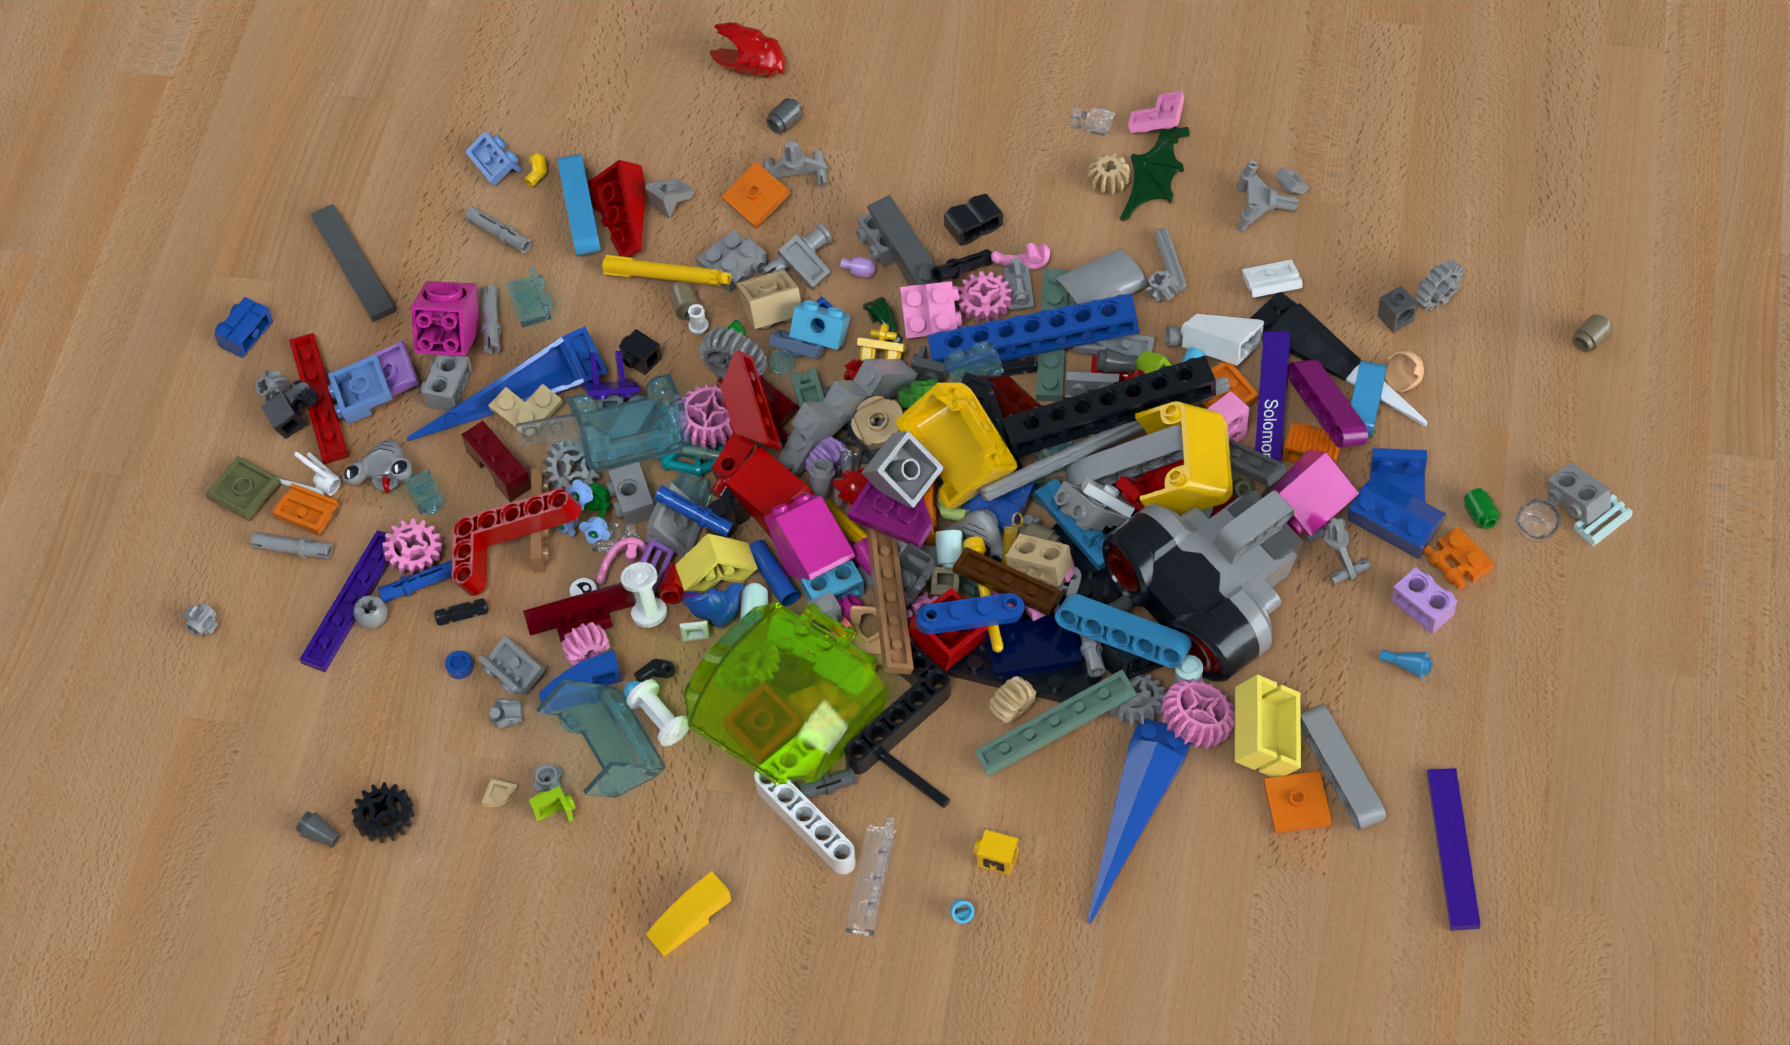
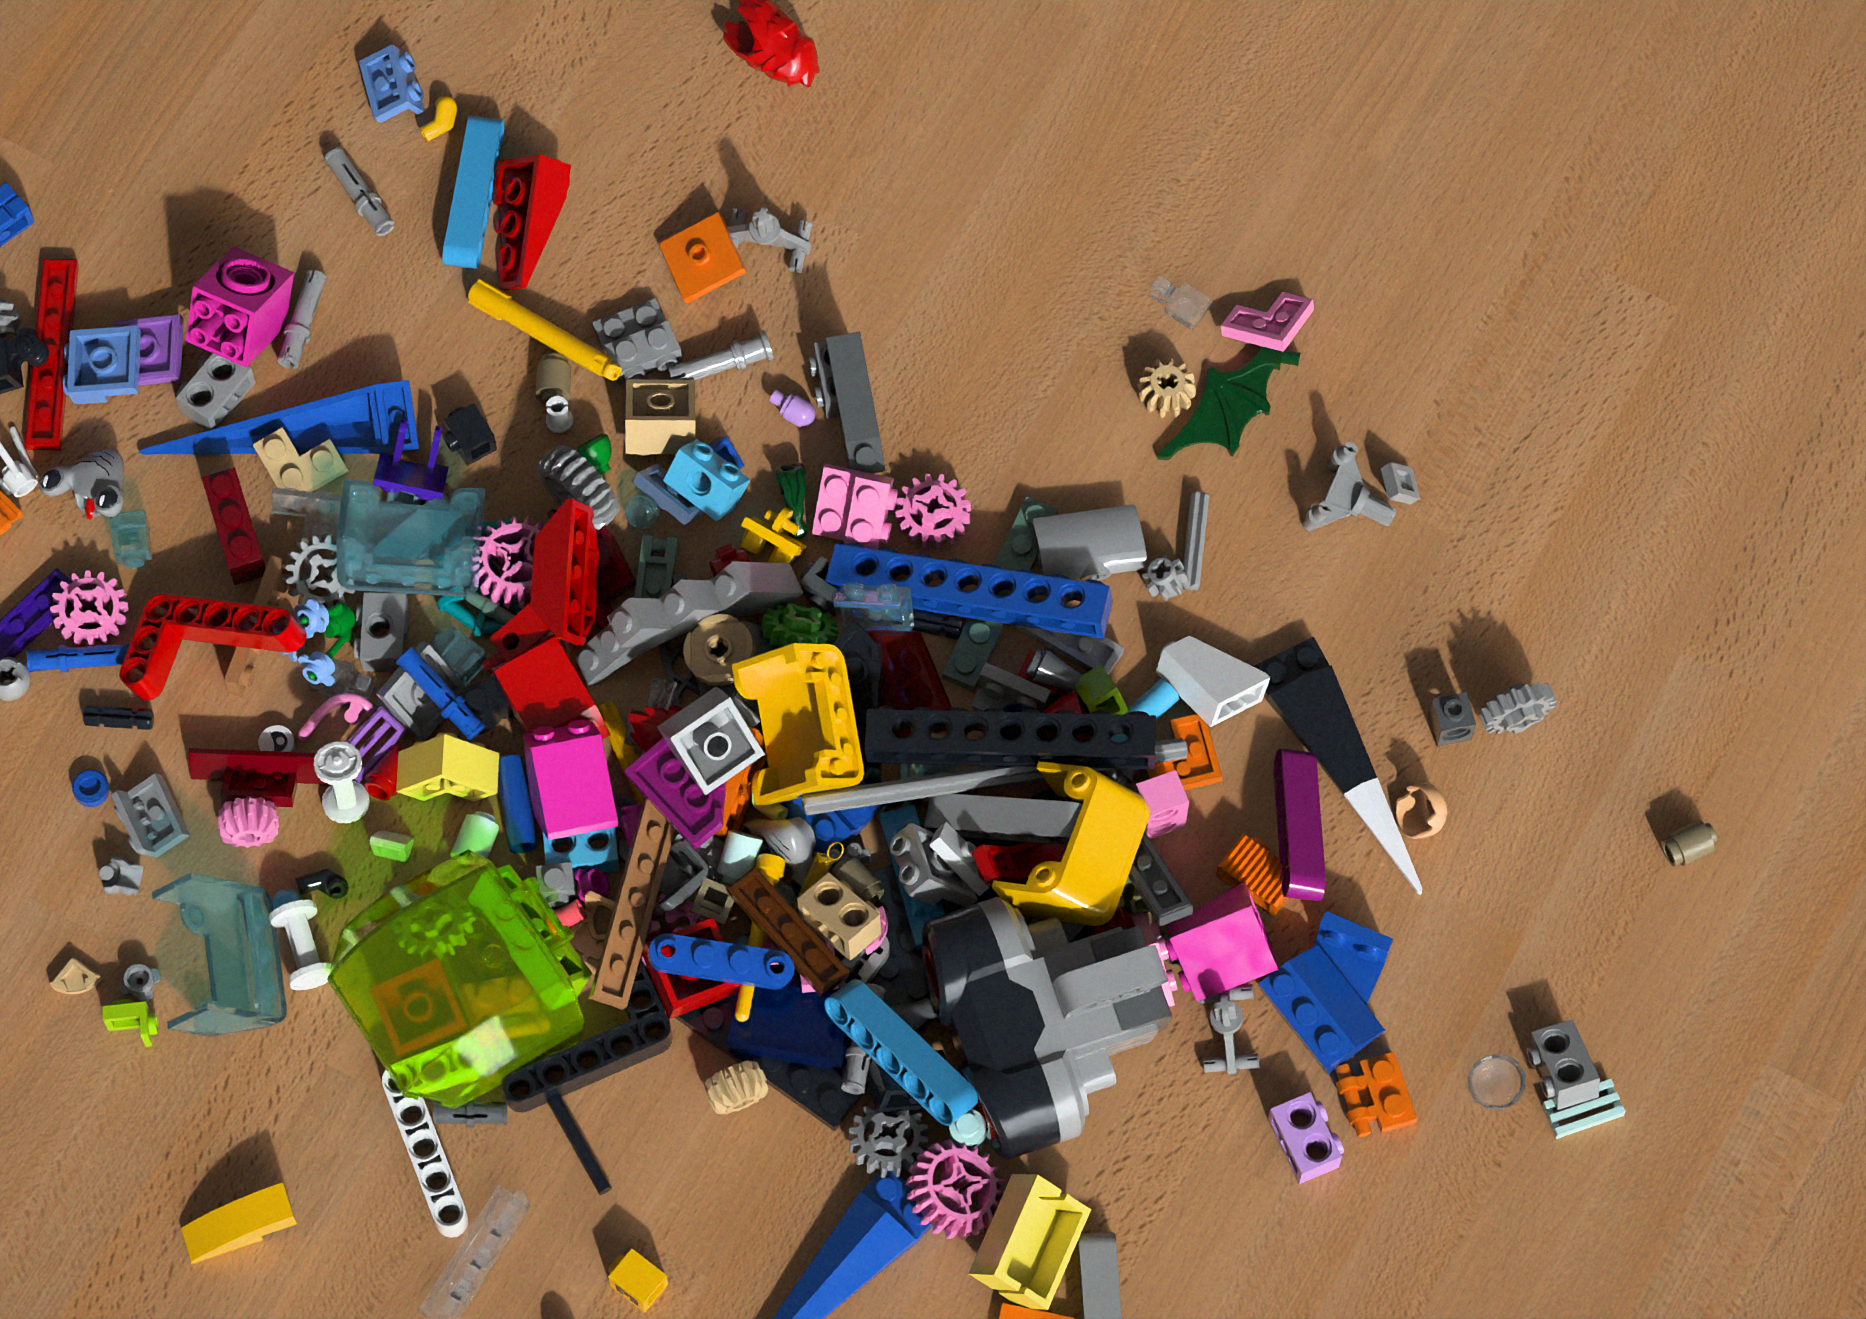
camera: 15 degrees right, 10 degrees up
(352, 263) = (161, 174): dark grey tile -> none
(529, 299) = (359, 308): clear light blue bracket -> none
(598, 670) = (233, 863): blue slope -> none
(666, 193) = (593, 216): light grey slope -> none
(715, 605) = (426, 822): blue hair -> none
(784, 115) = (784, 152): dark grey brick -> none
(803, 262) = (724, 379): light grey tile -> none
(821, 477) = (619, 700): light grey cone -> none
(830, 450) = (635, 673): lavender gear -> none
(956, 267) = (908, 461): black pin -> none
(973, 219) = (965, 392): black brick -> none
(1020, 283) = (986, 508): light grey hinge -> none
(1036, 256) = (1020, 476): bright pink piece -> none
(1055, 722) = (774, 1138): sand green plate -> none
(1172, 336) = (1150, 652): light grey hinge -> none
(1272, 278) = (1311, 616): white plate -> none
(1273, 394) = (1234, 793): dark purple tile -> none
(1368, 392) = (1356, 832): dark azure beam -> none
(1413, 662) = (1256, 1218): dark azure cone -> none
(1481, 508) = (1434, 1038): green brick -> none

